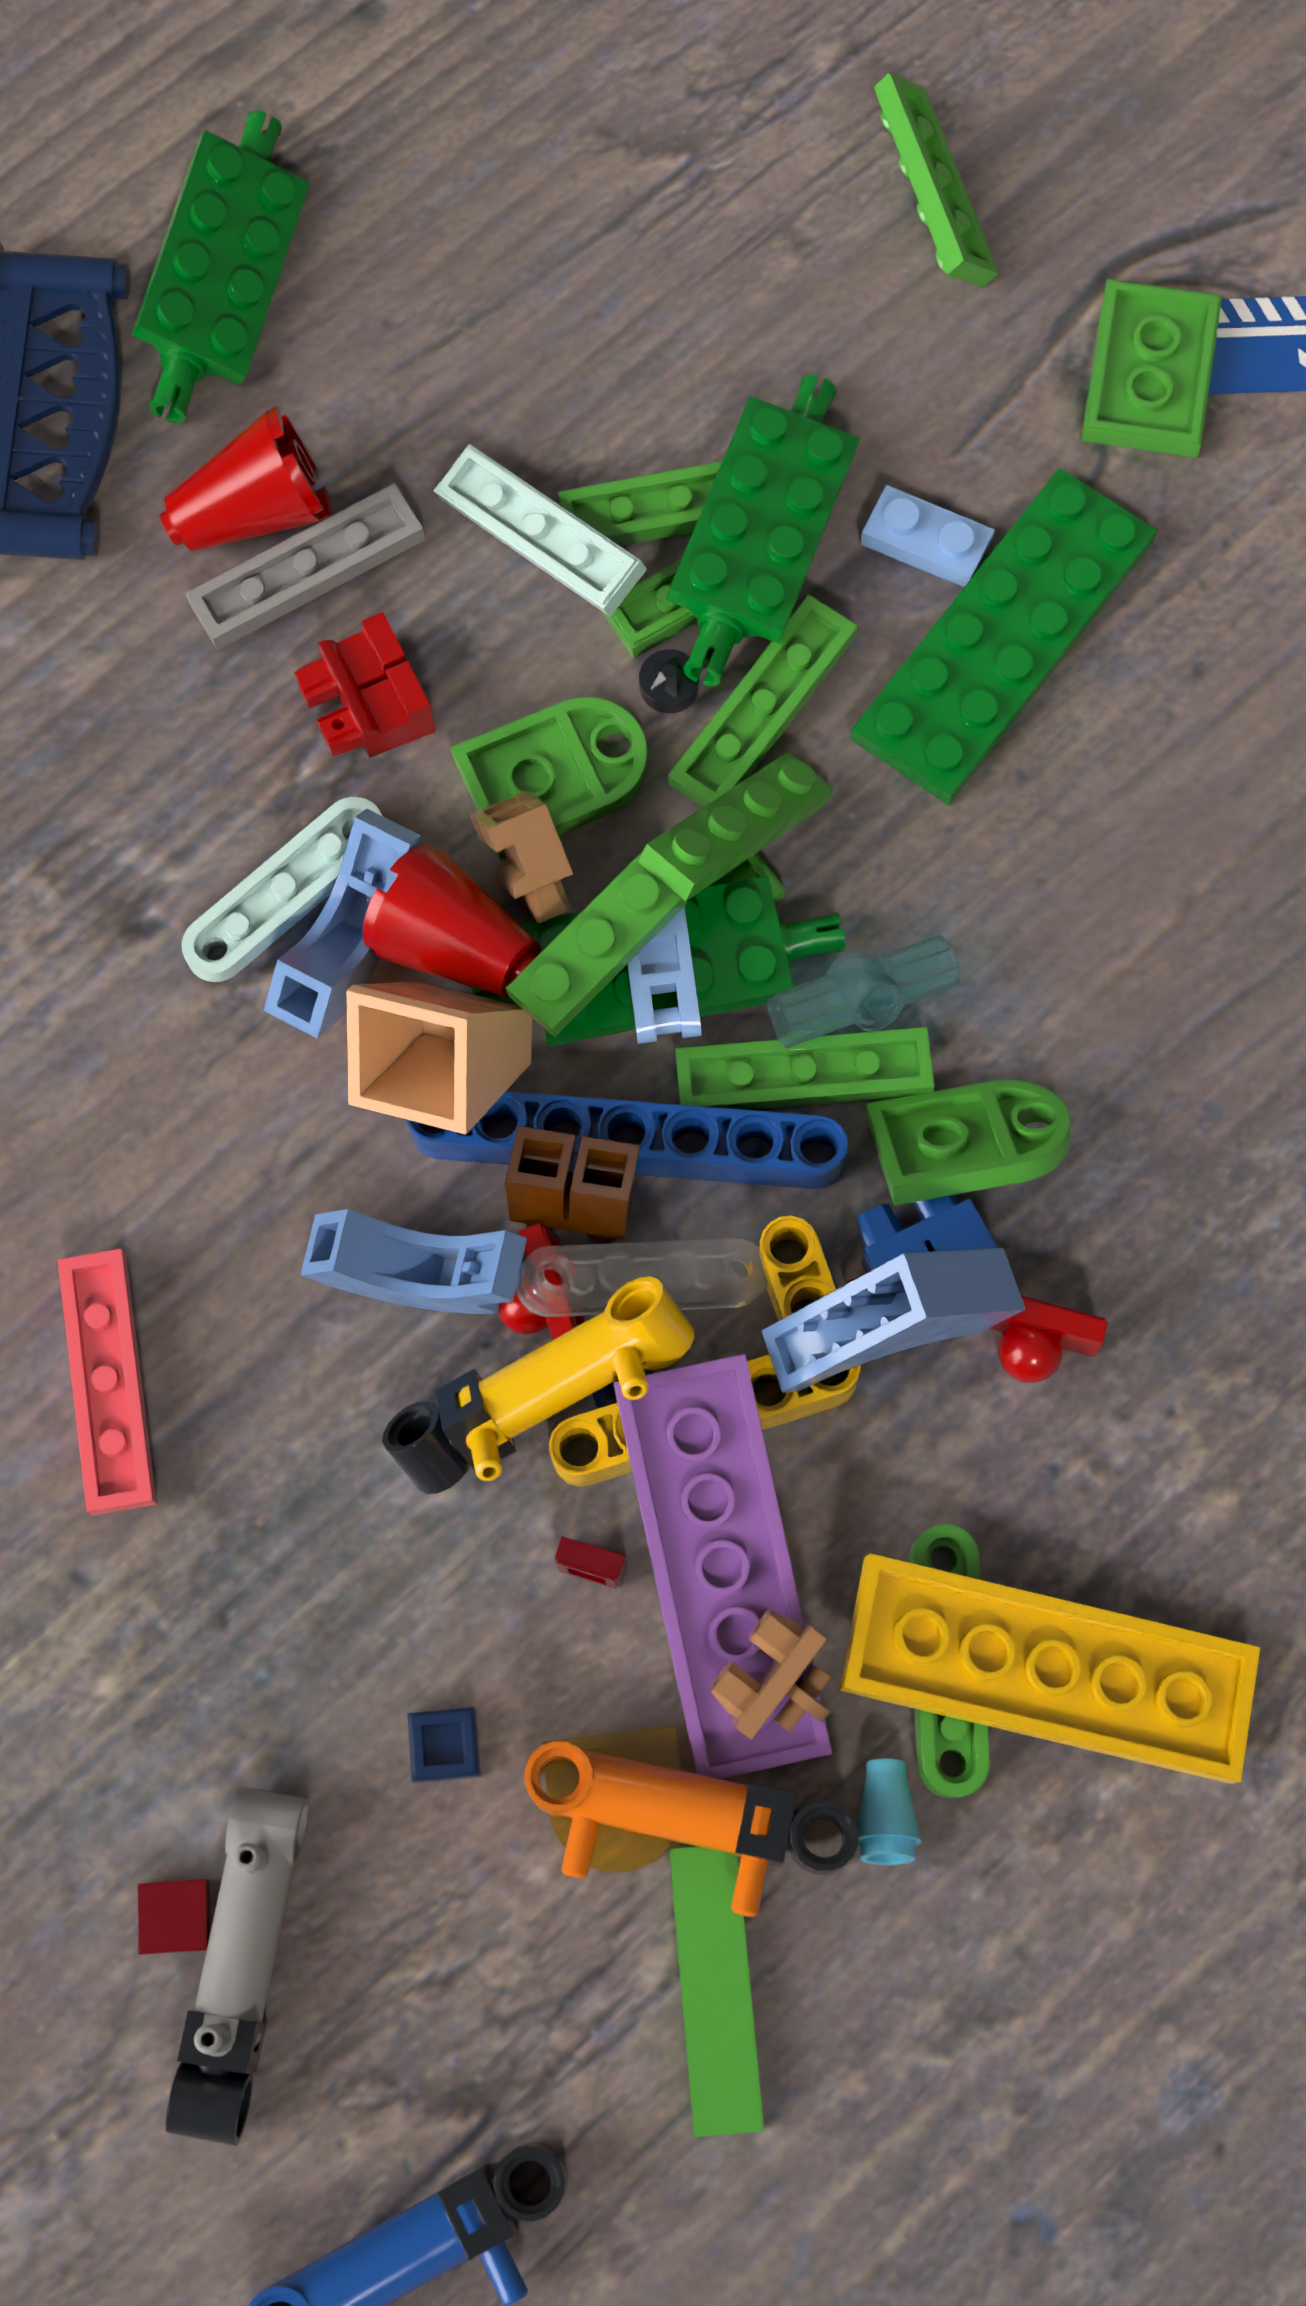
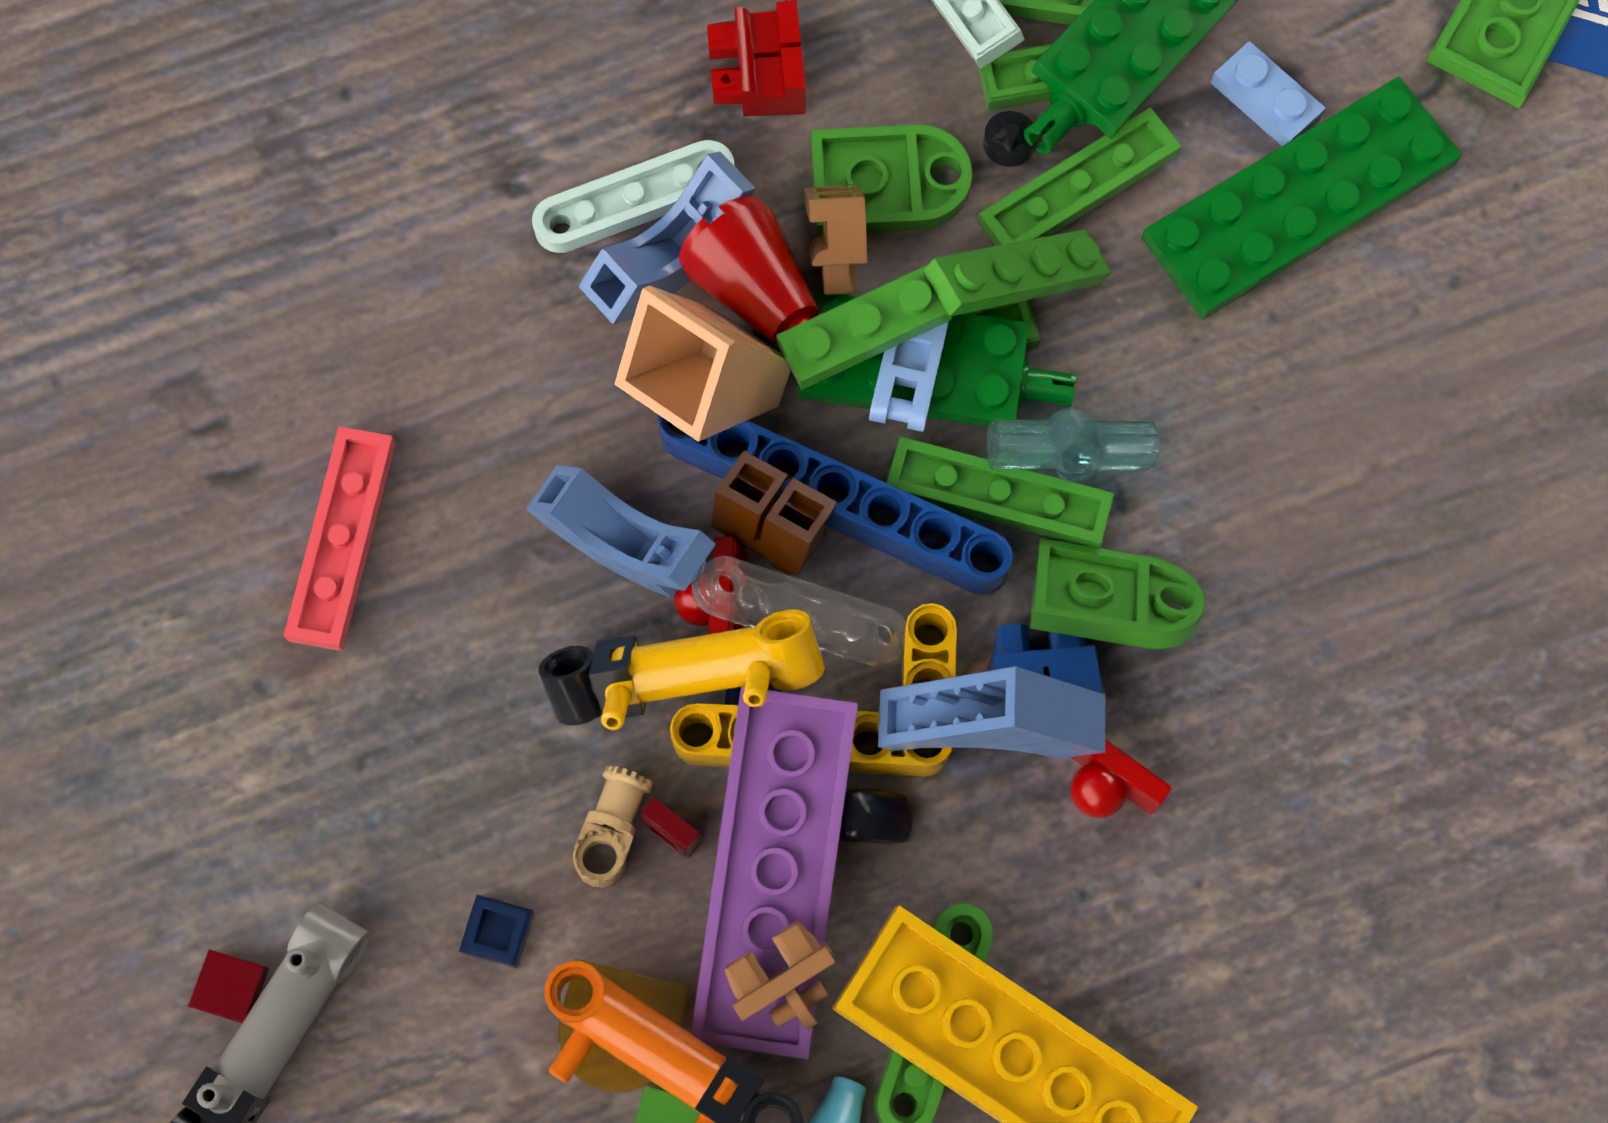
camera: 15 degrees right, 0 degrees up
(524, 1581) = (611, 823): none -> tan connector
(806, 1468) = (875, 817): none -> black hair

